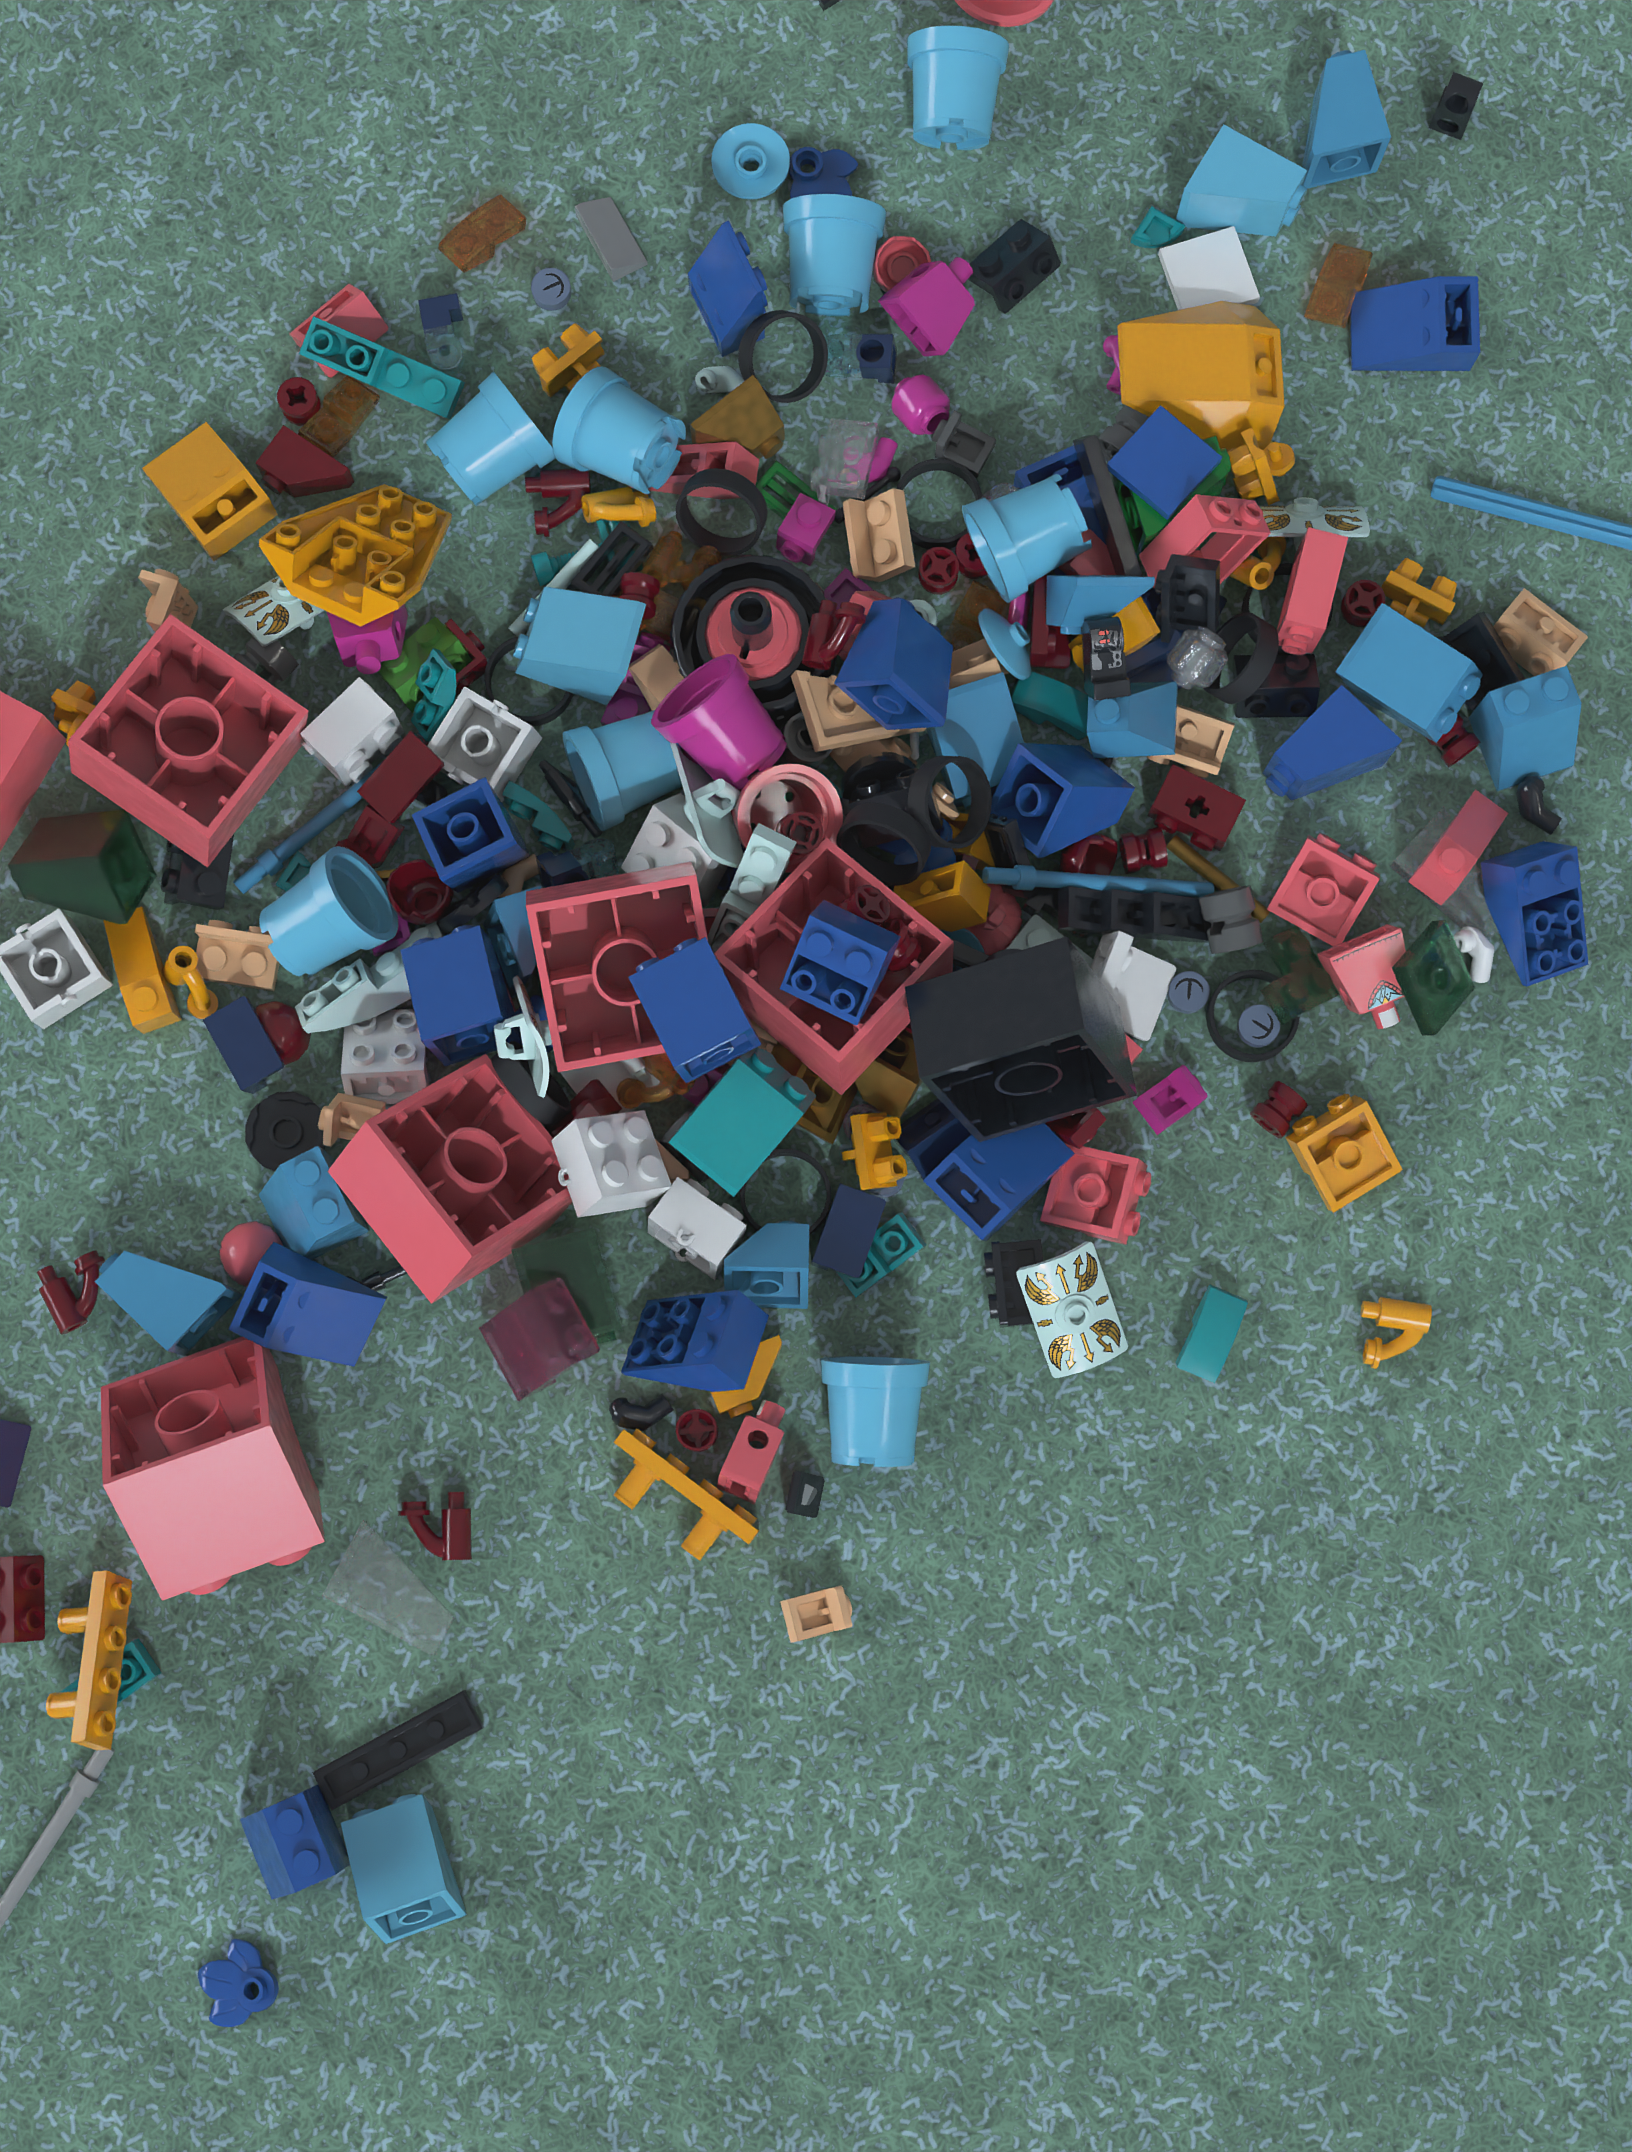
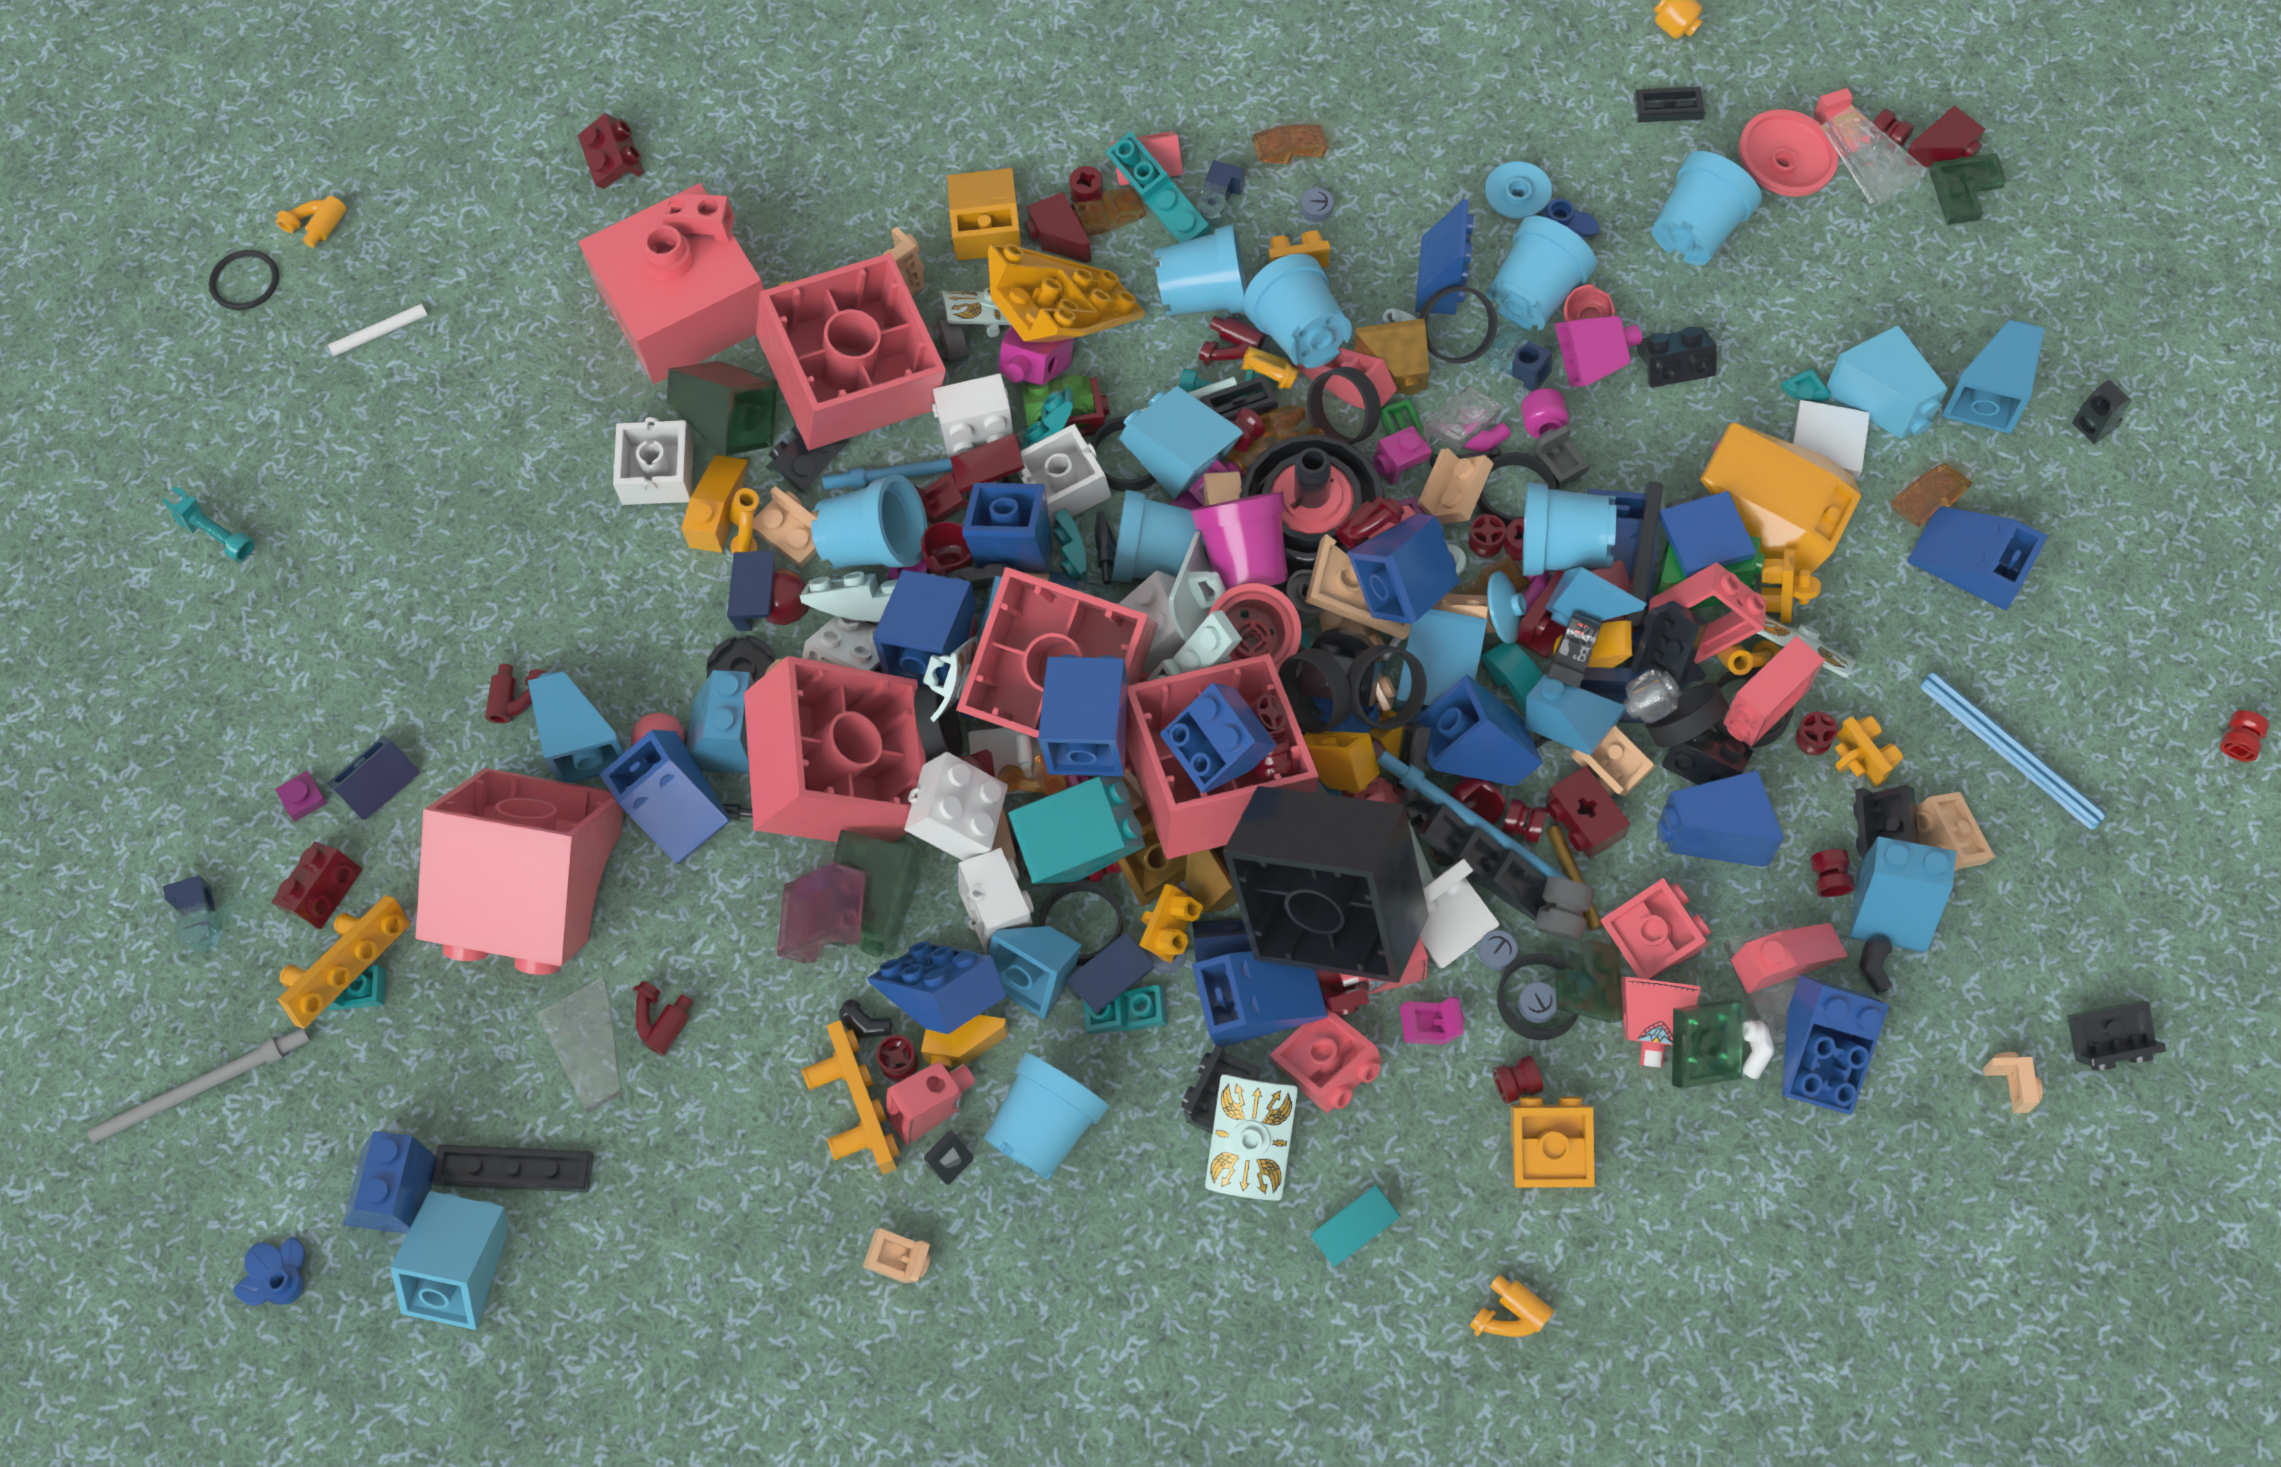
camera: 35 degrees right, 15 degrees down
(610, 237) = (1382, 192): light grey slope -> none
(1409, 674) = (1820, 796): dark azure slope -> none

